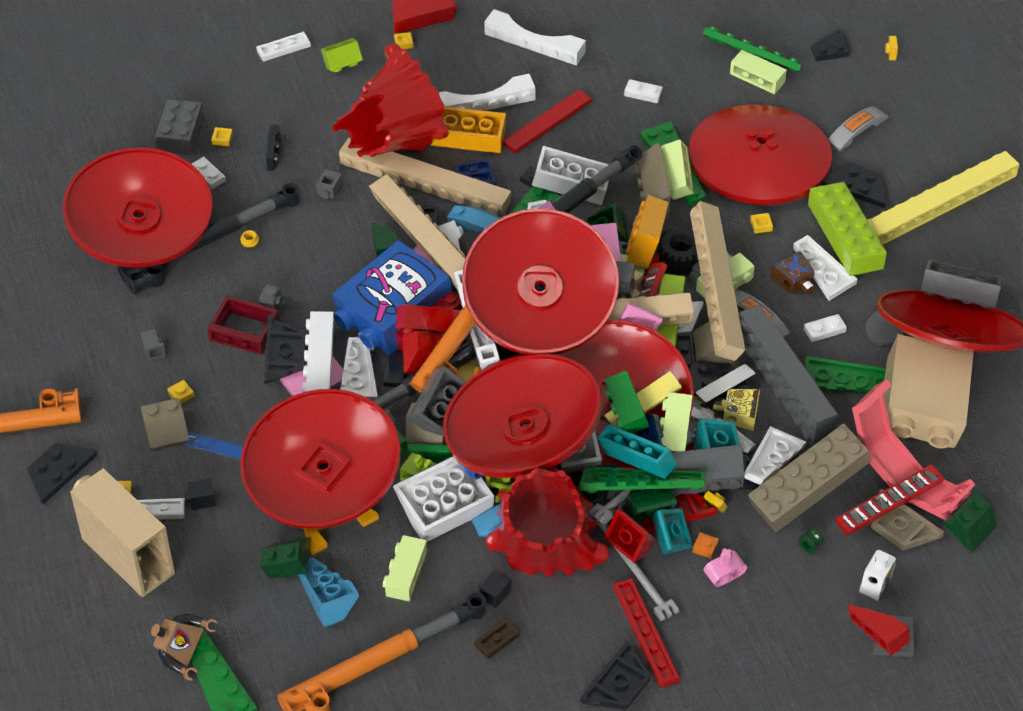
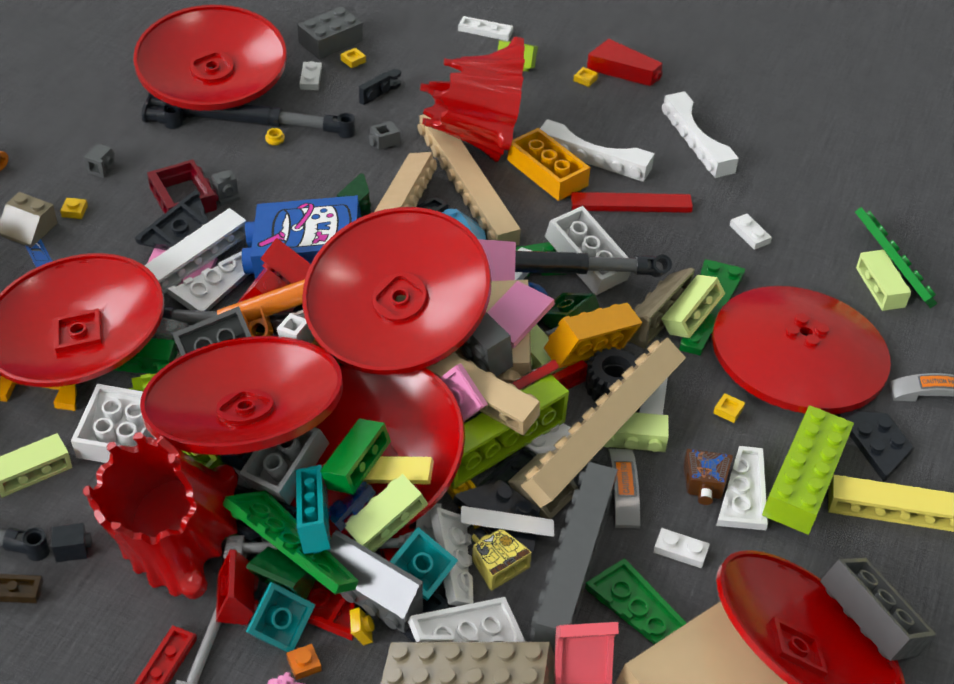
camera: 40 degrees right, 5 degrees down
(478, 170) = (517, 201): clear blue wing -> none

